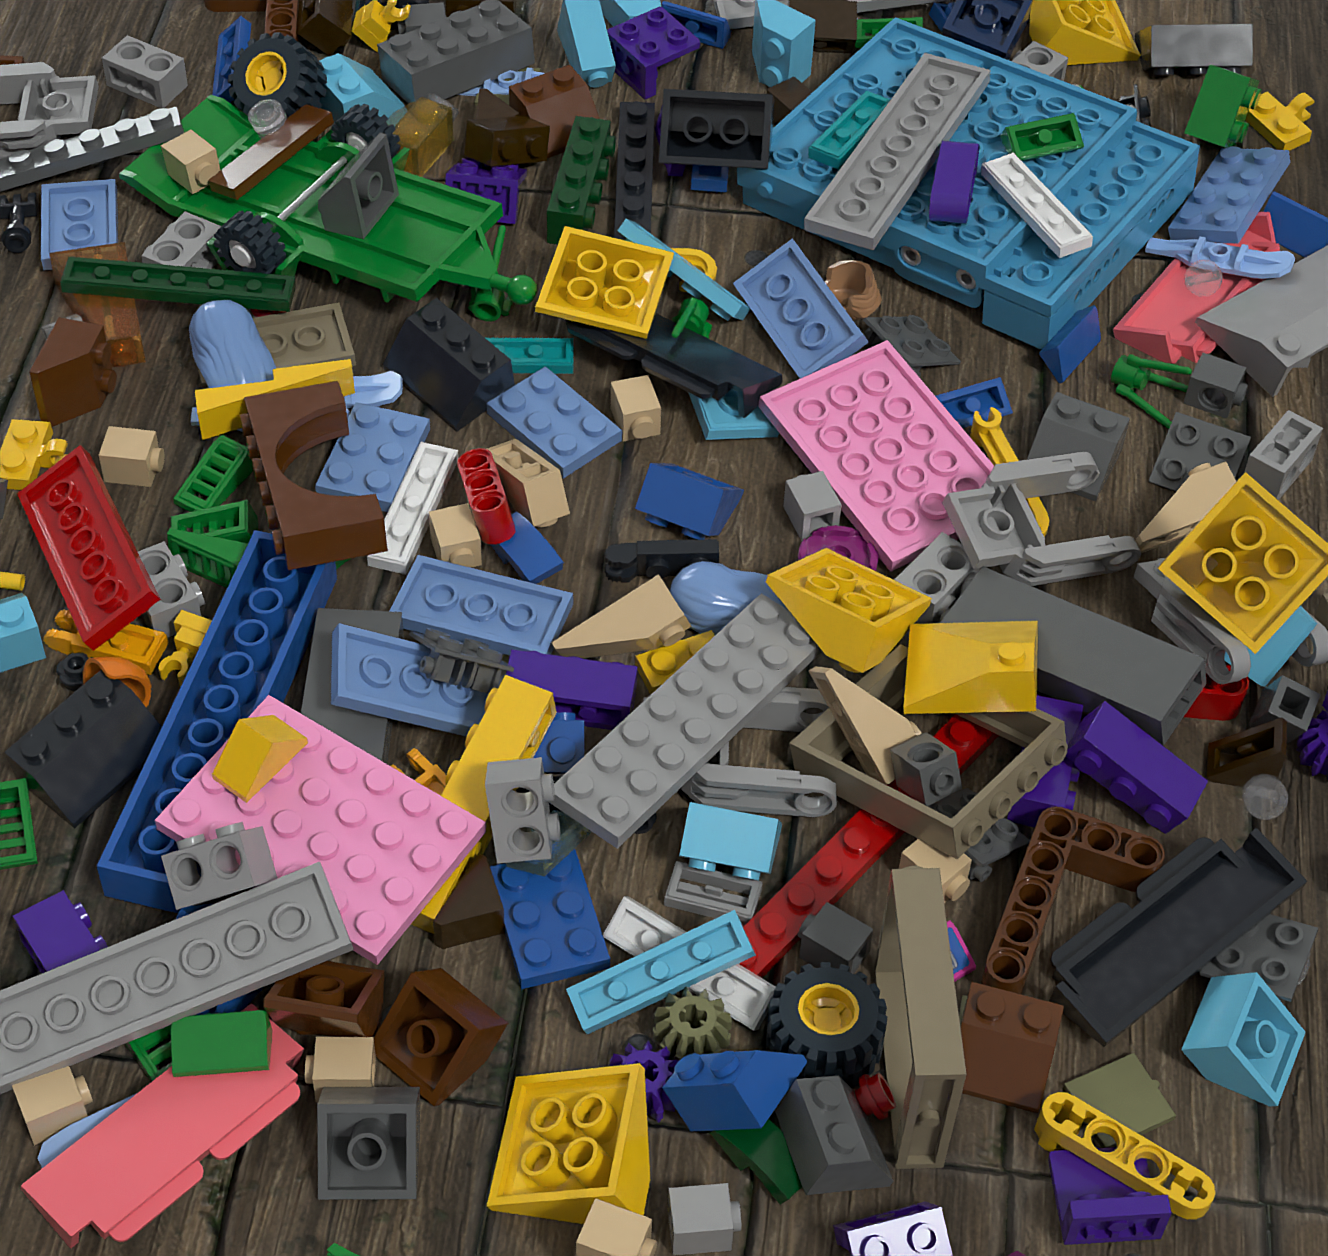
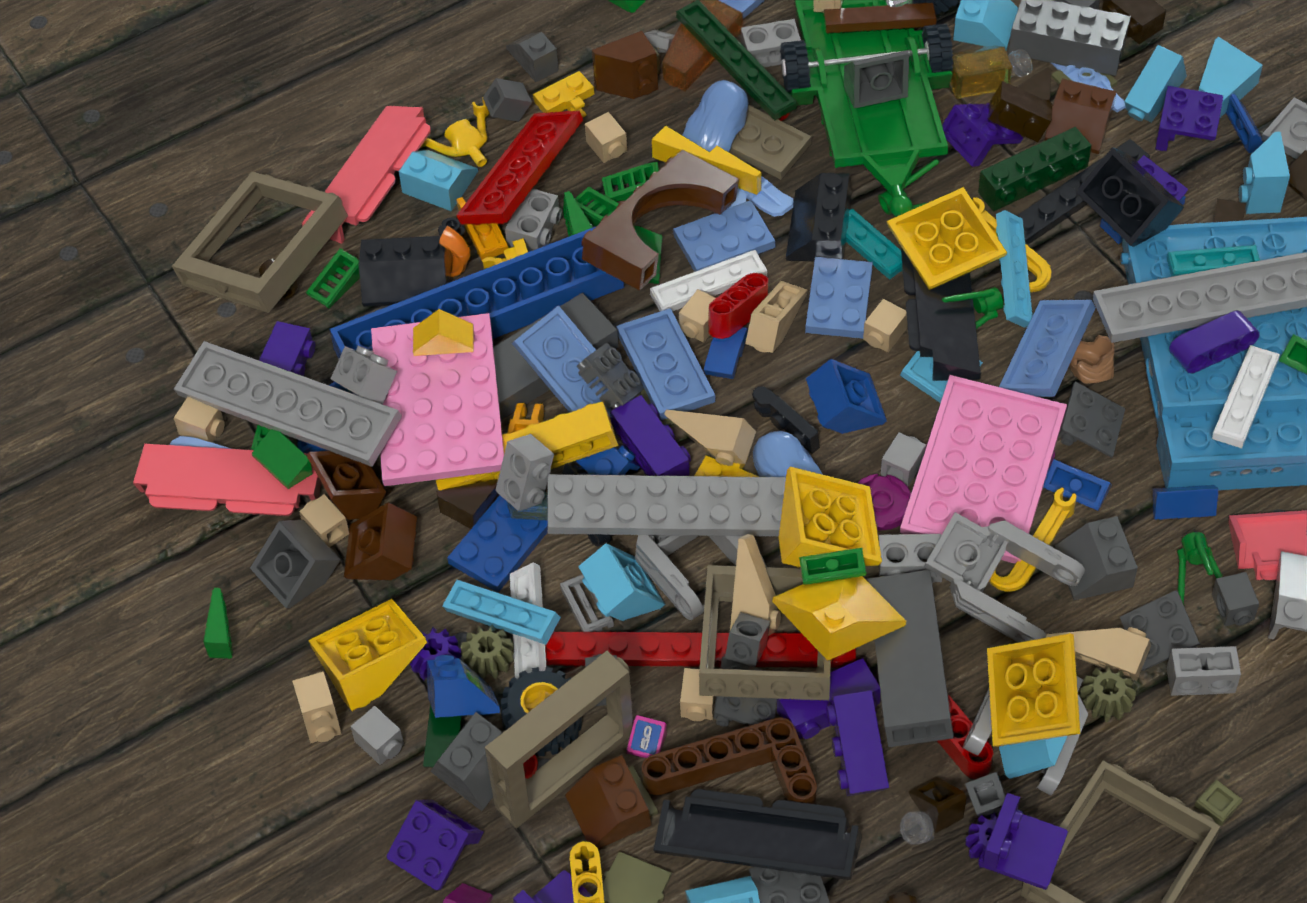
camera: 55 degrees right, 5 degrees up
(913, 634) = (832, 566): none -> green slope

